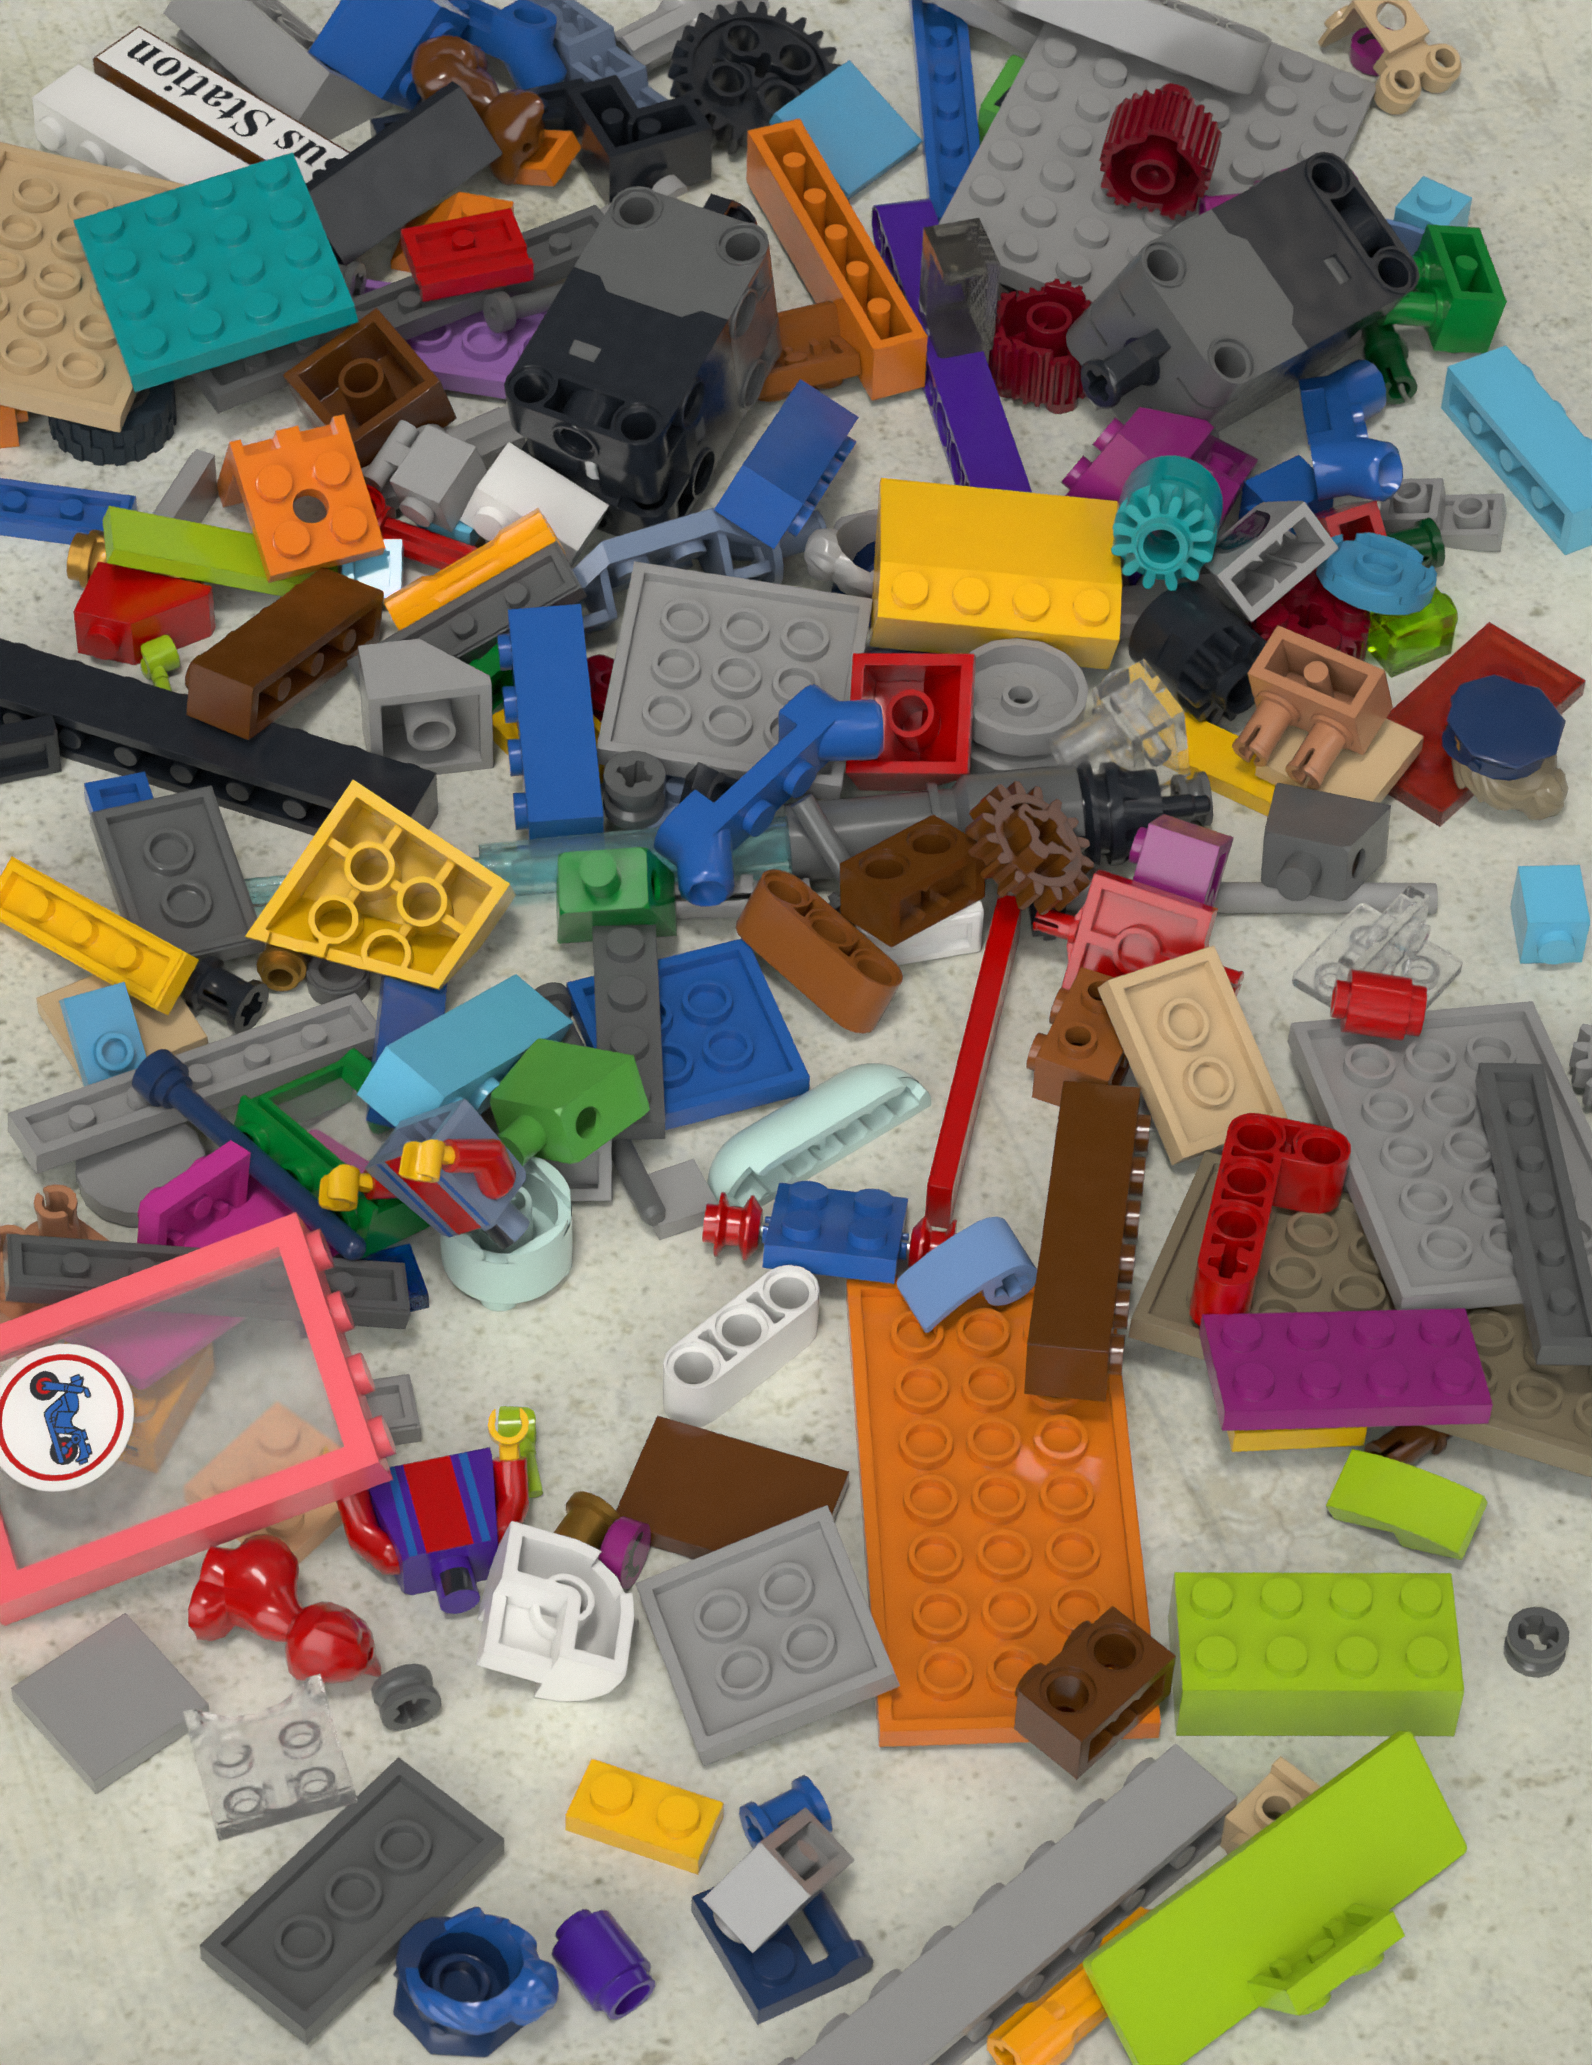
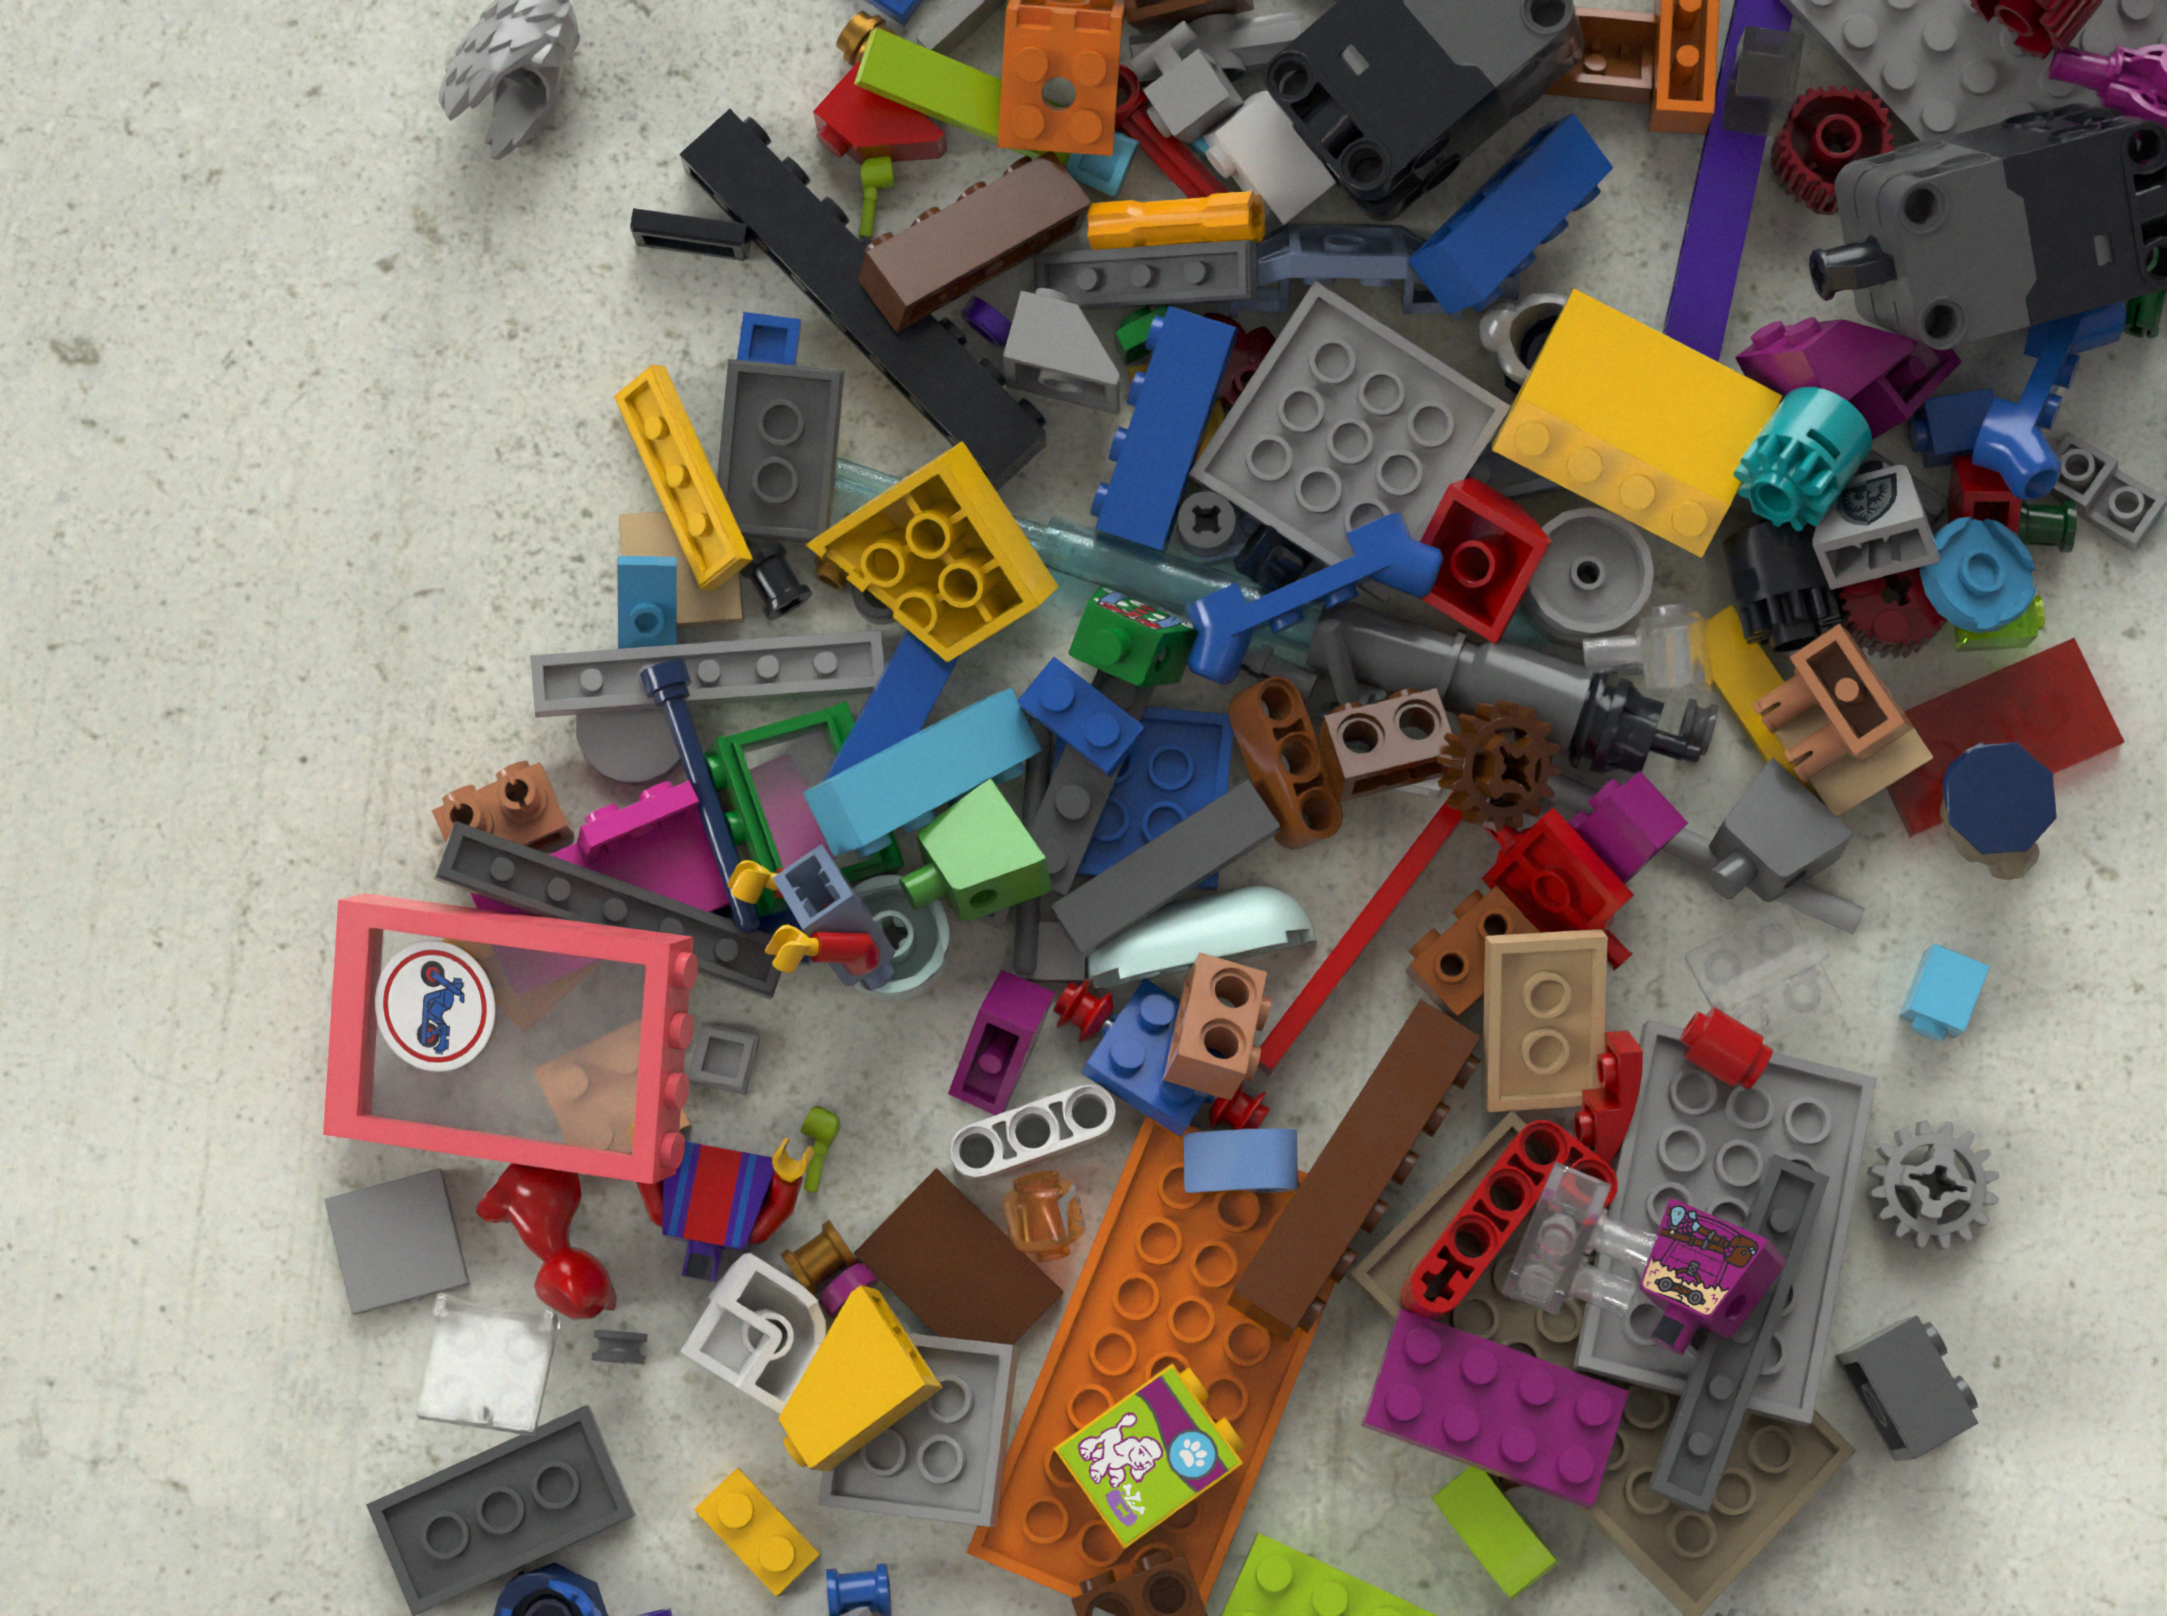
camera: 30 degrees right, 30 degrees up
(332, 720) = (986, 321): none -> dark purple tile
(600, 964) = (1081, 716): none -> blue plate
(663, 1282) = (1001, 1042): none -> magenta slope
(684, 1606) = (855, 1384): none -> yellow slope
(750, 1071) = (1165, 868): none -> dark grey tile
(792, 1408) = (1044, 1215): none -> clear orange head
(878, 1168) = (1208, 1023): none -> nougat brick
(1021, 1553) = (1151, 1454): none -> brick
(1297, 1072) = (1610, 1108): none -> red slope
(1319, 1187) = (1562, 1228): none -> clear brick
(1480, 1155) = (1705, 1275): none -> torso

